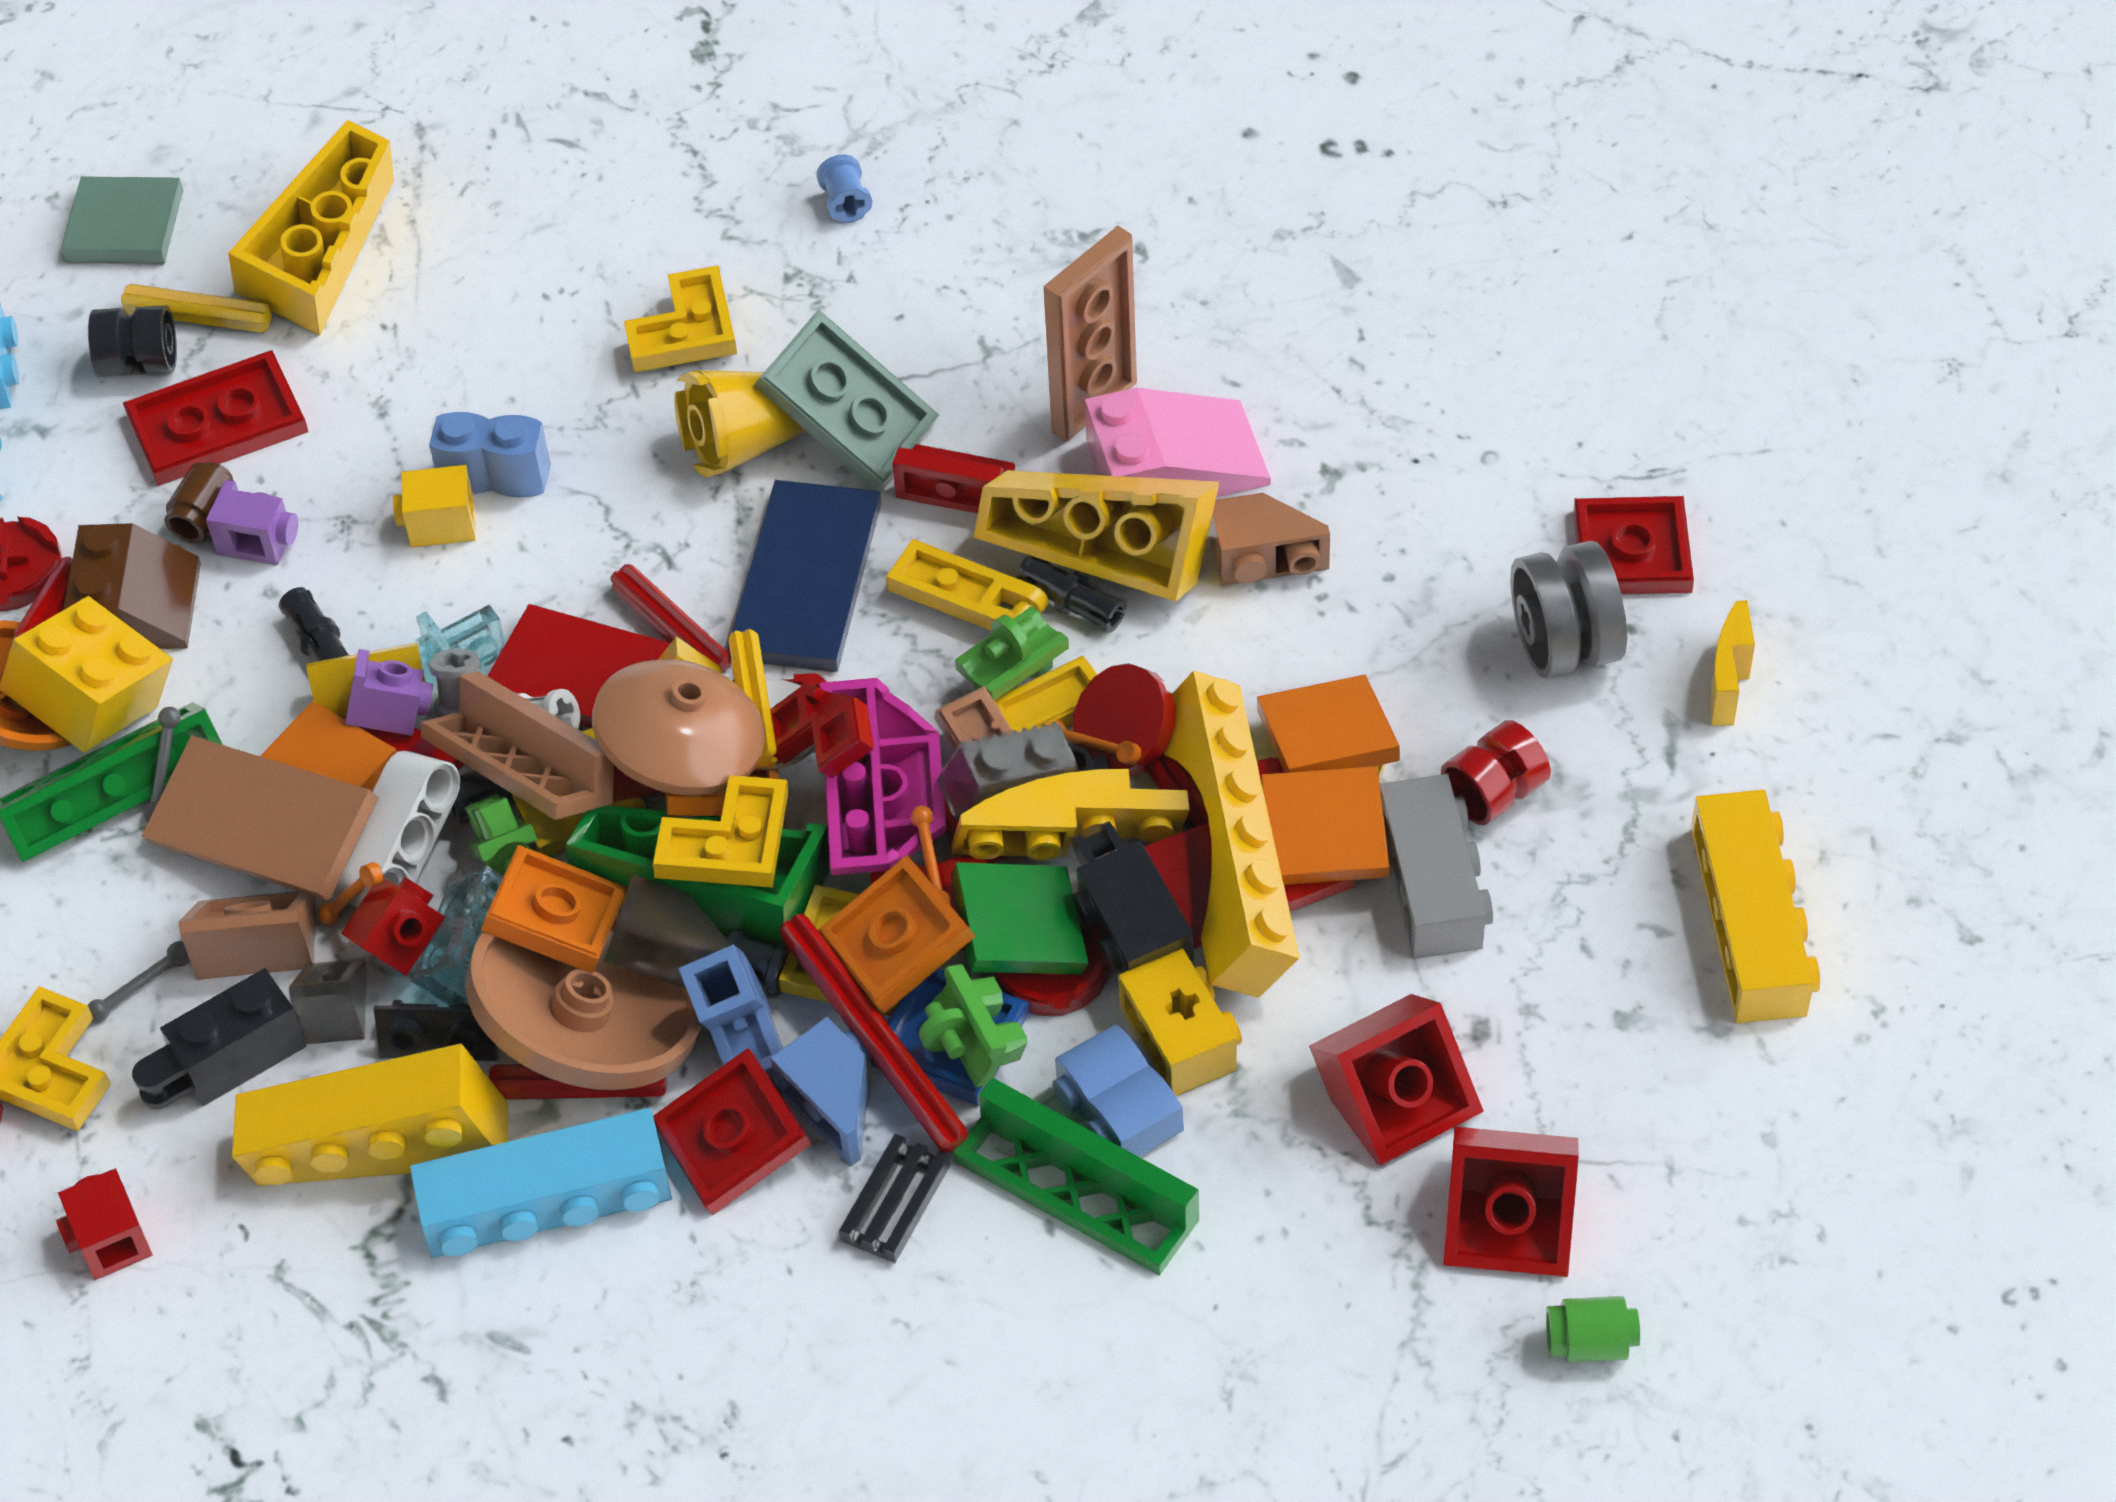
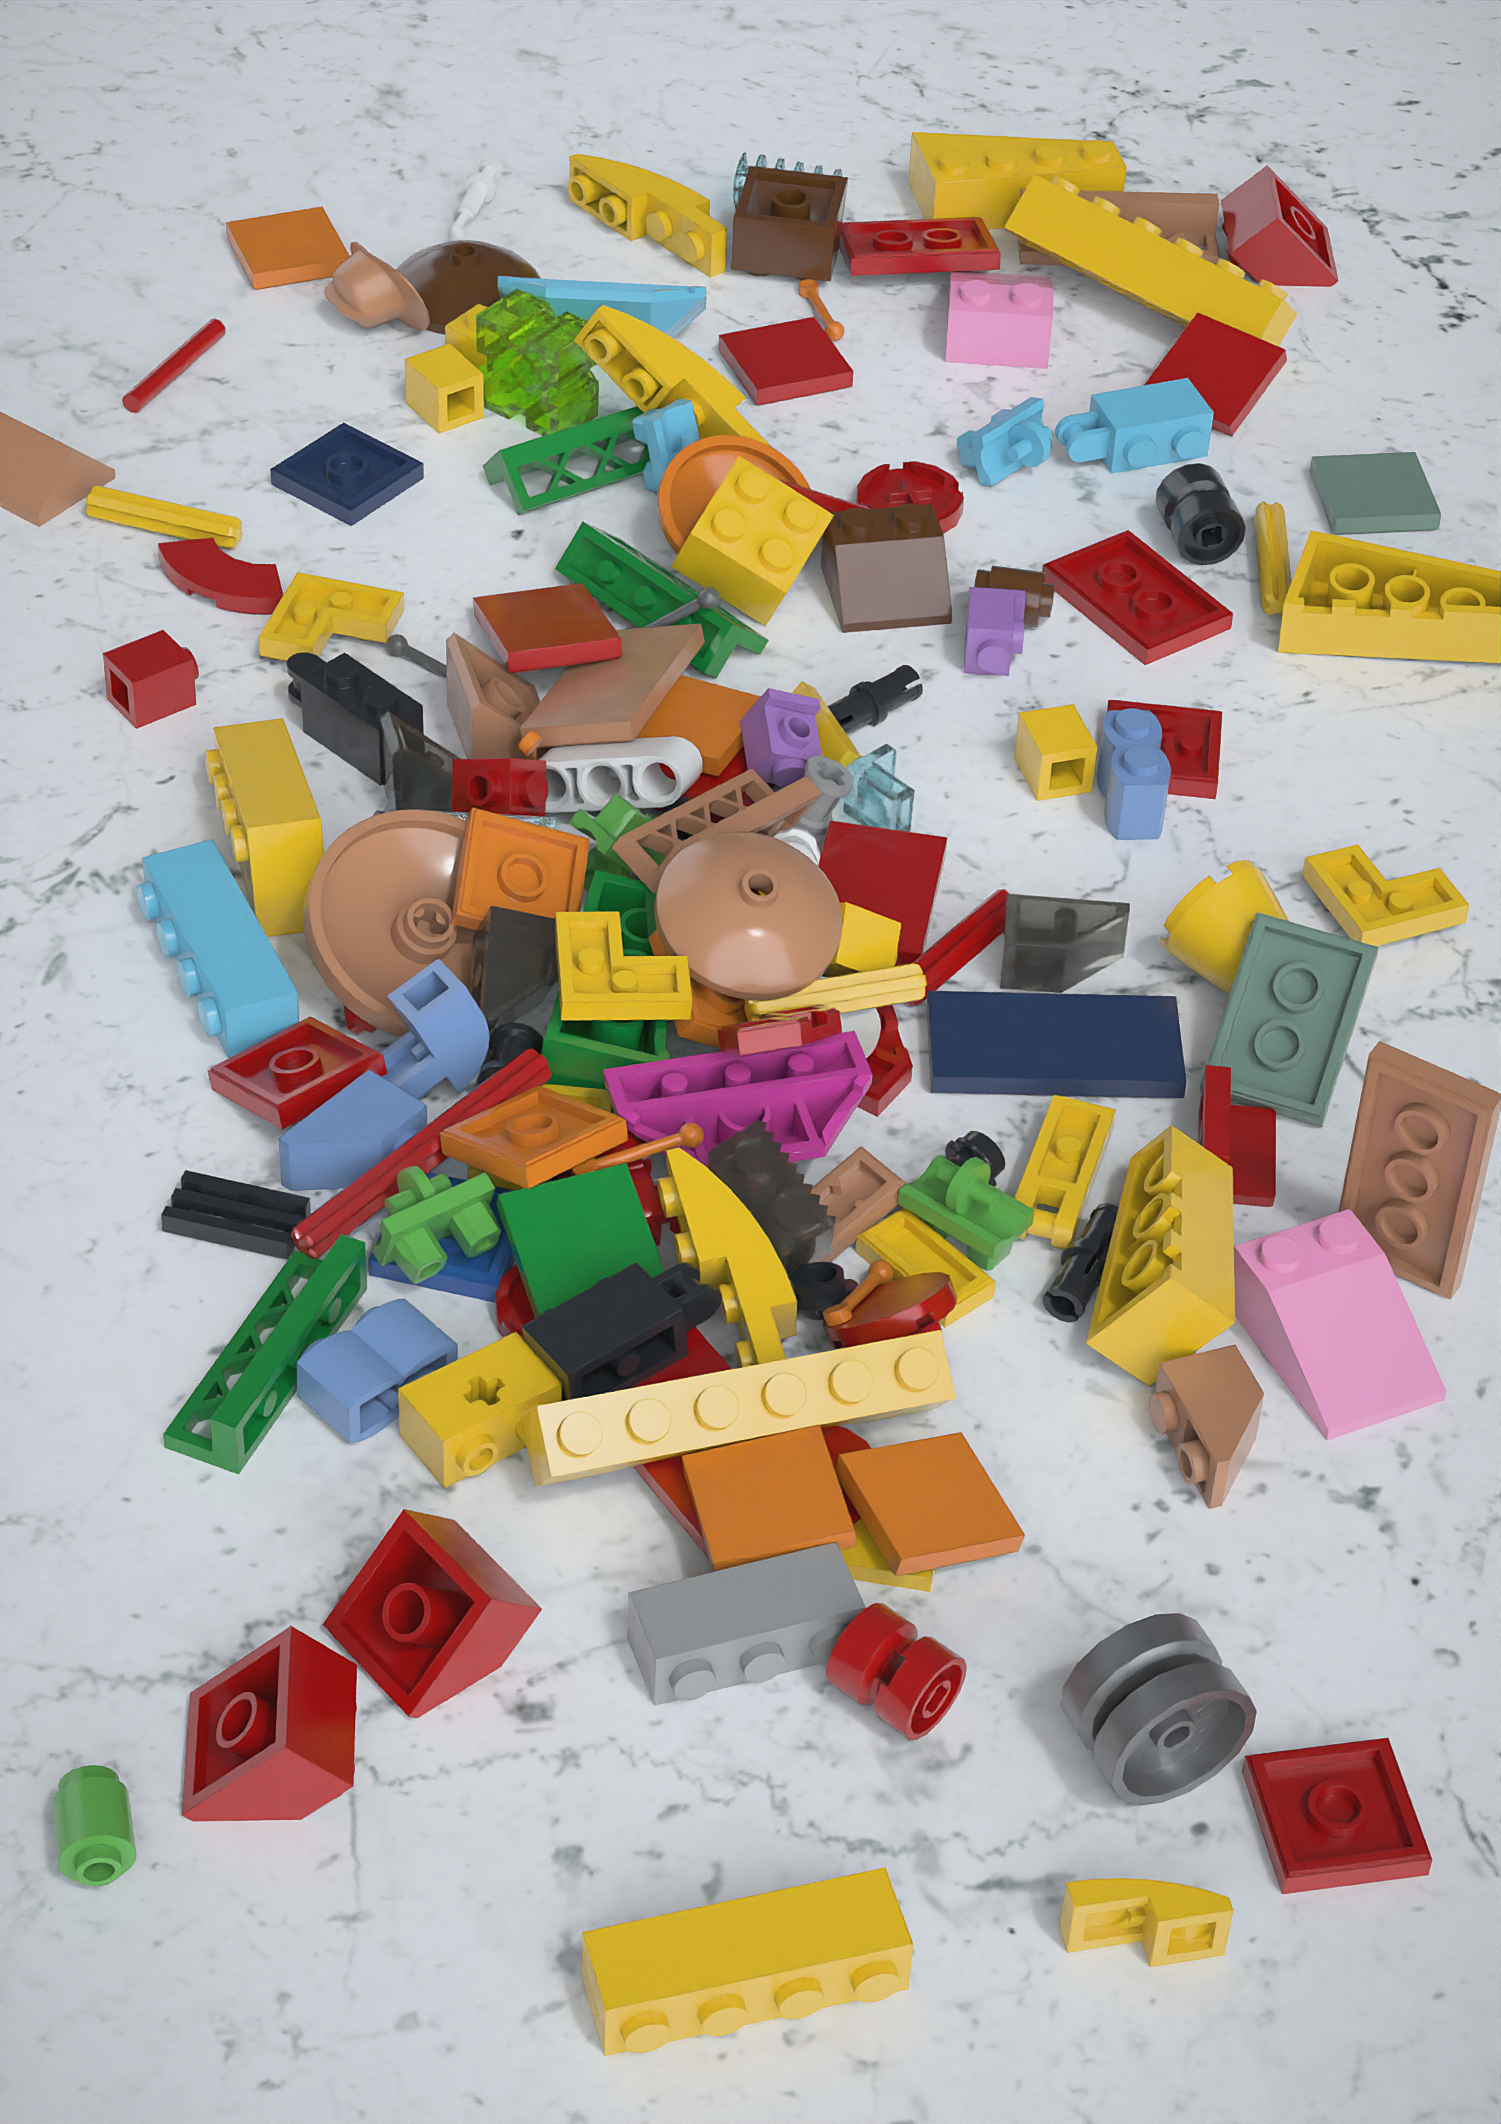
camera: 75 degrees right, 10 degrees down
(138, 868) = (547, 628): none -> red tile
(409, 429) = (1190, 743): none -> red tile
(691, 550) = (1059, 941): none -> clear smoke slope
(942, 646) = (976, 1145): none -> black plate

